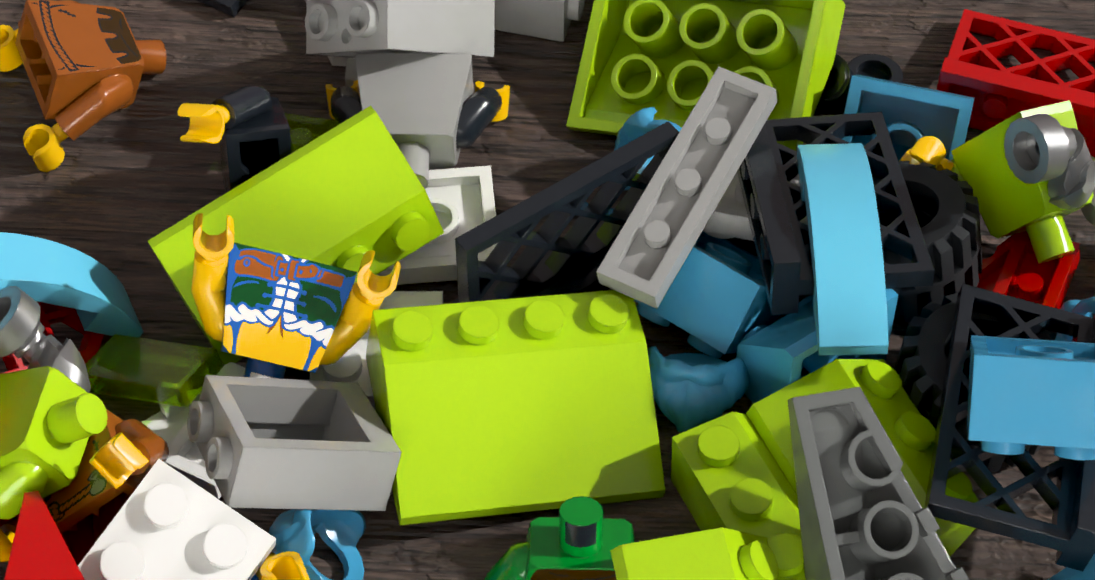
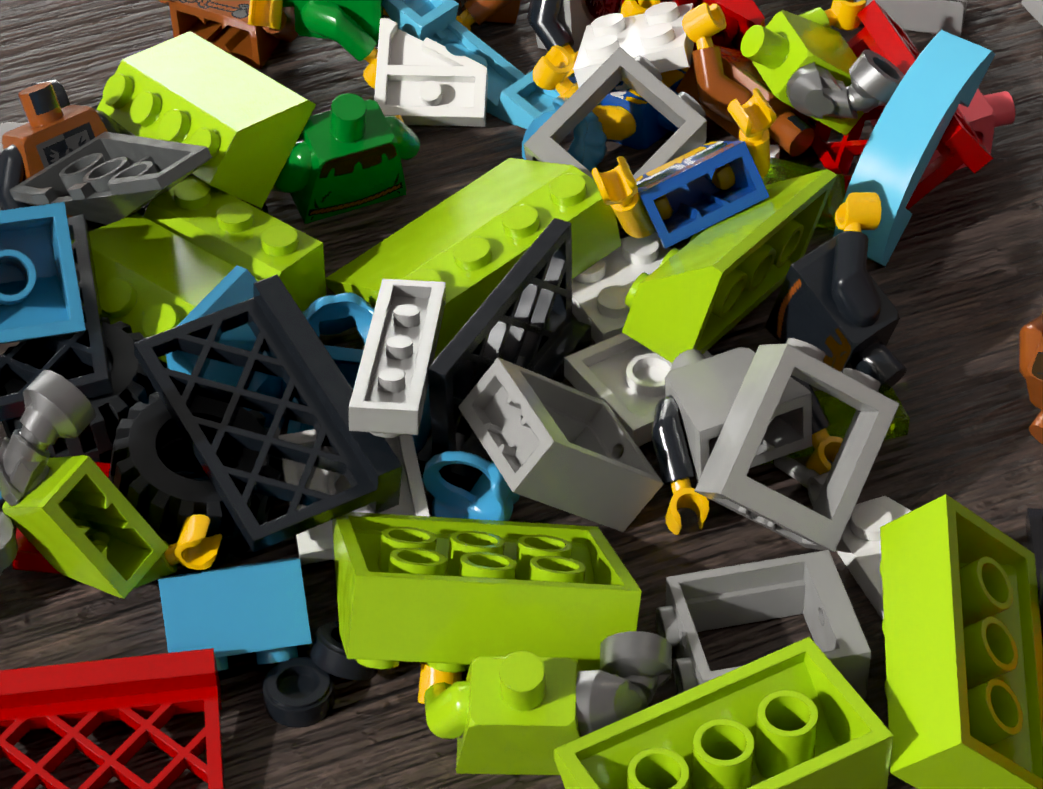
camera: 155 degrees right, 10 degrees down
(602, 77) = (559, 445): none -> light grey window
(844, 249) = (242, 354): medium azure slope -> none

